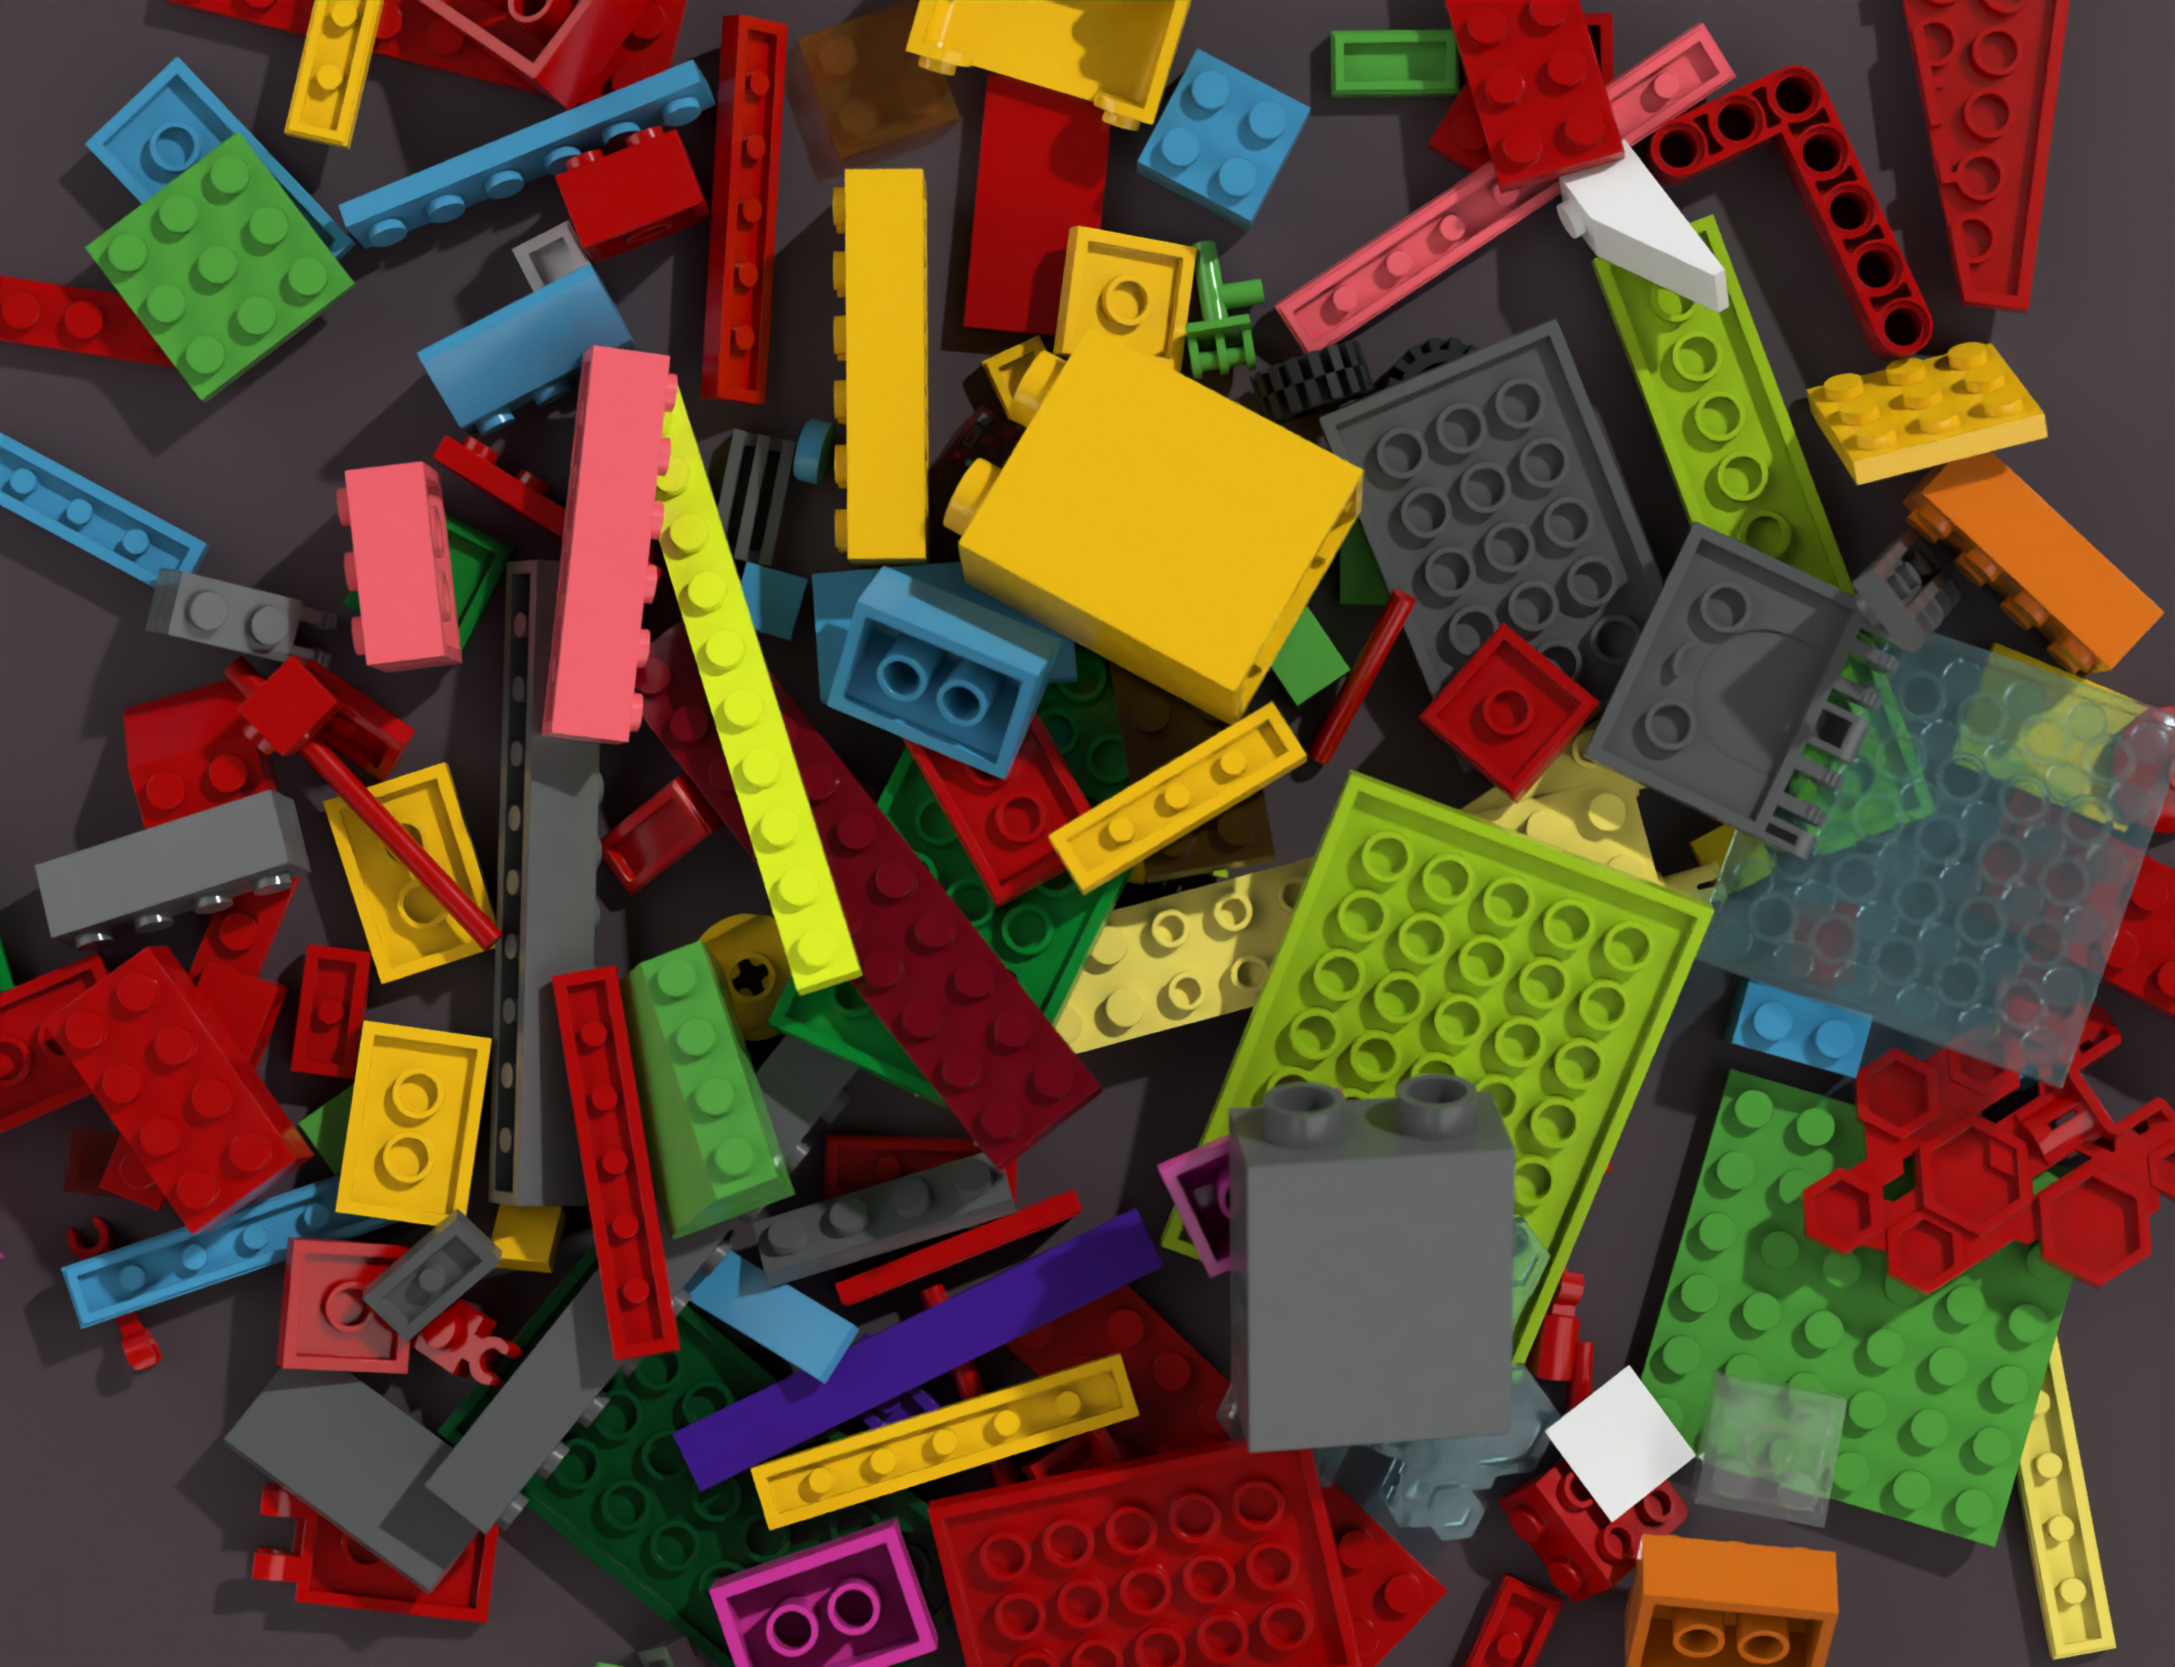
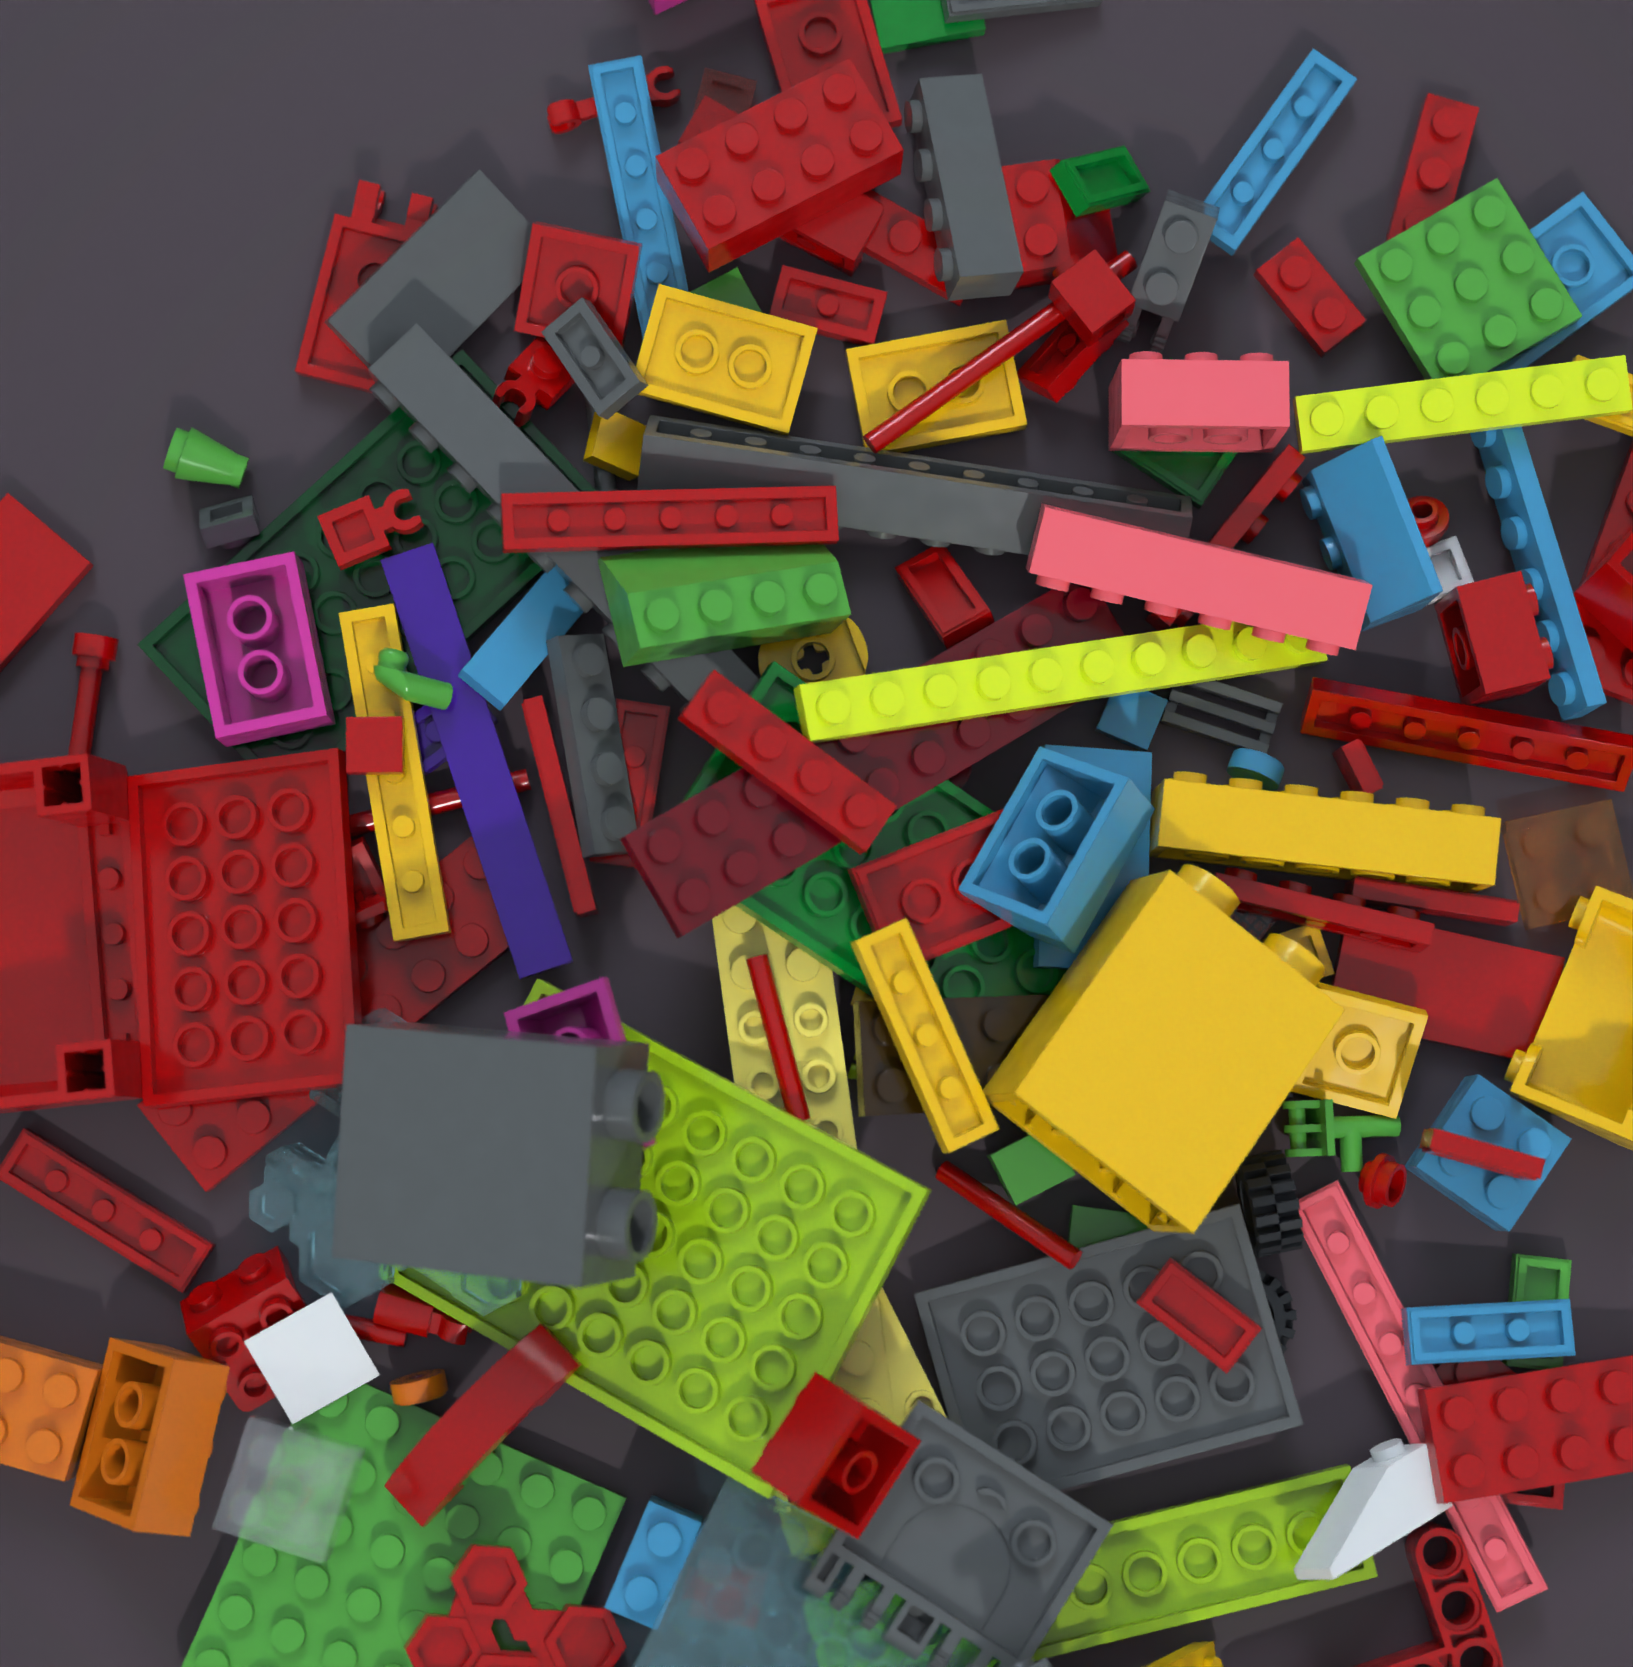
camera: 90 degrees right, 5 degrees down
(145, 711) = (1100, 180): none -> green tile
(249, 449) = (1309, 297): none -> red plate
(363, 261) = (1463, 404): none -> neon yellow plate
(509, 278) = (1434, 518): none -> red plate
(668, 1519) = (360, 530): none -> red plate
(801, 333) = (1358, 768): none -> red tile
(846, 1436) = (408, 685): none -> bright green arm
(887, 992) = (787, 762): none -> red plate
(919, 1466) = (375, 745): none -> red tile
(942, 233) = (1435, 901): none -> red tile
(973, 335) = (1341, 915): none -> red plate
(1195, 963) = (777, 1036): none -> red bar
(1231, 151) = (1481, 1154): none -> red tile
(1269, 255) = (1382, 1181): none -> red plate
(1425, 119) = (1488, 1331): none -> dark azure tile
(1449, 449) = (1199, 1315): none -> red tile
(1510, 713) = (962, 1340): red tile -> none
(1636, 1318) = (419, 1387): none -> orange tile
(1659, 841) = (835, 1456): none -> red brick
(1669, 1243) = (480, 1423): none -> red slope

